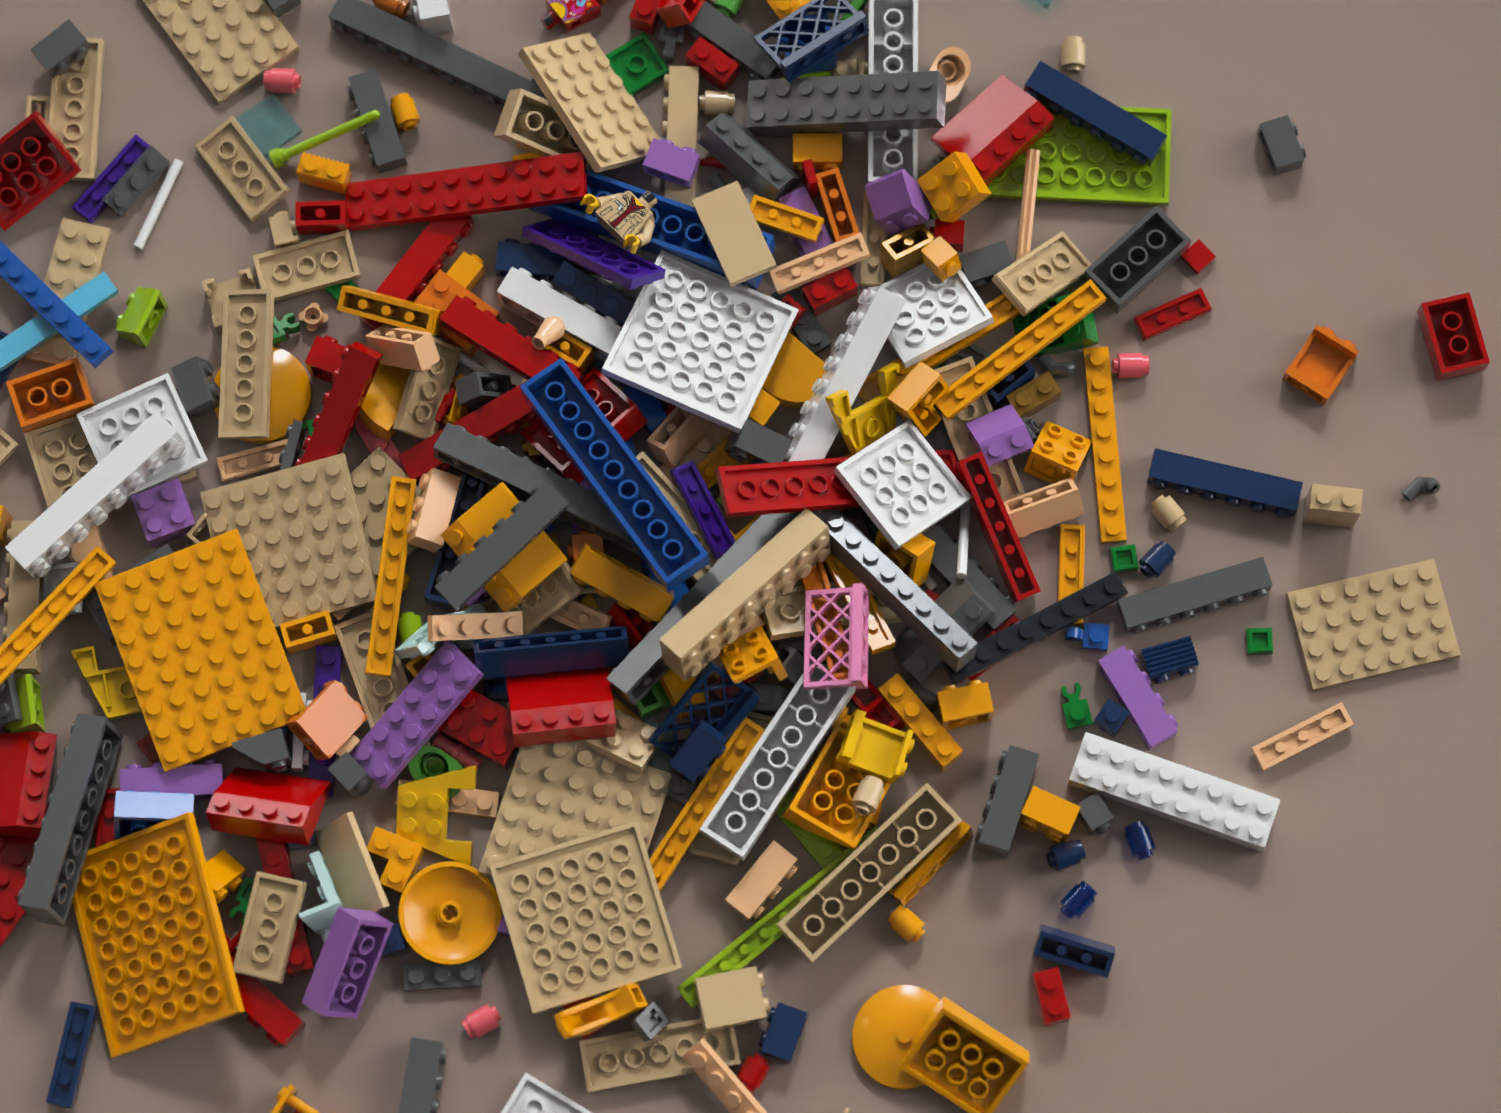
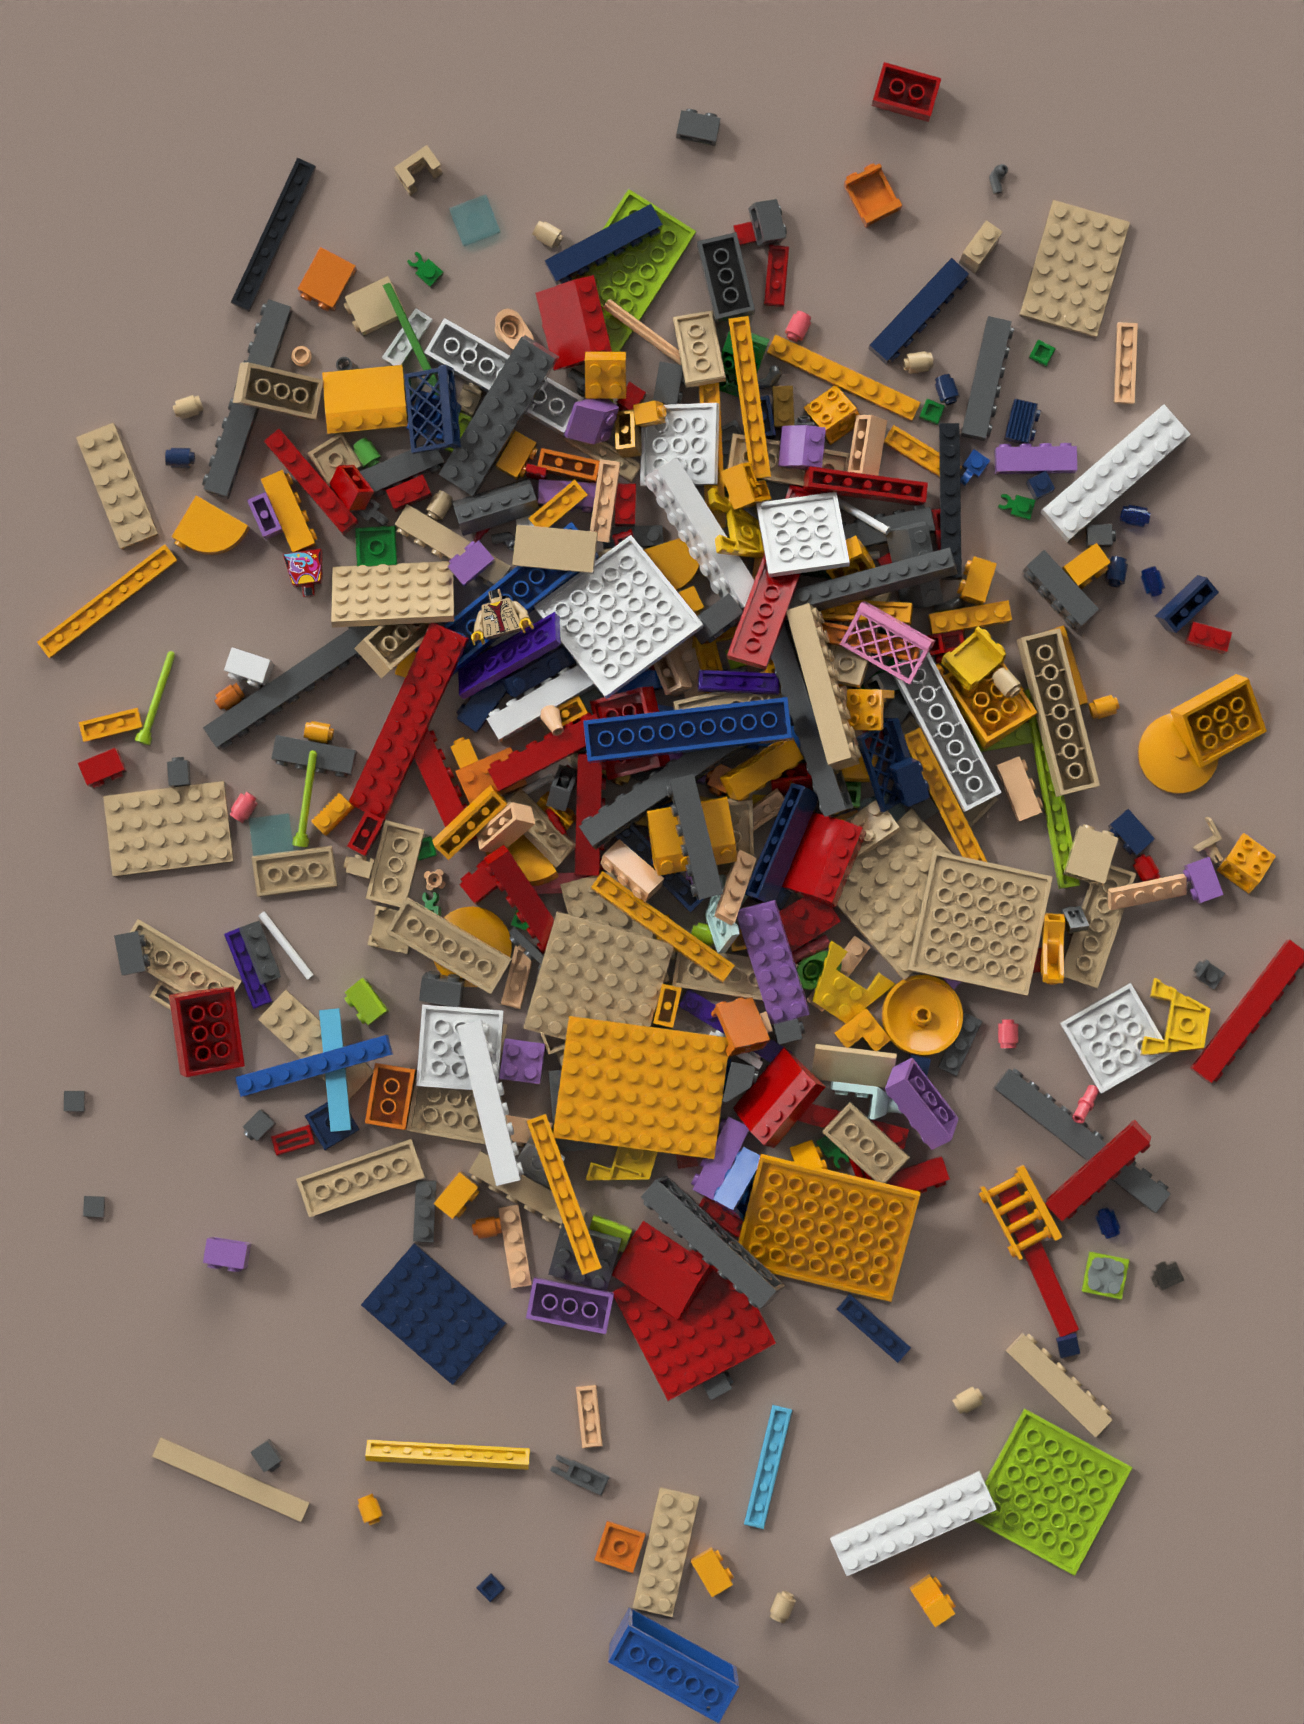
camera: 65 degrees left, 10 degrees up
(1223, 271) = (767, 222): none -> dark grey brick

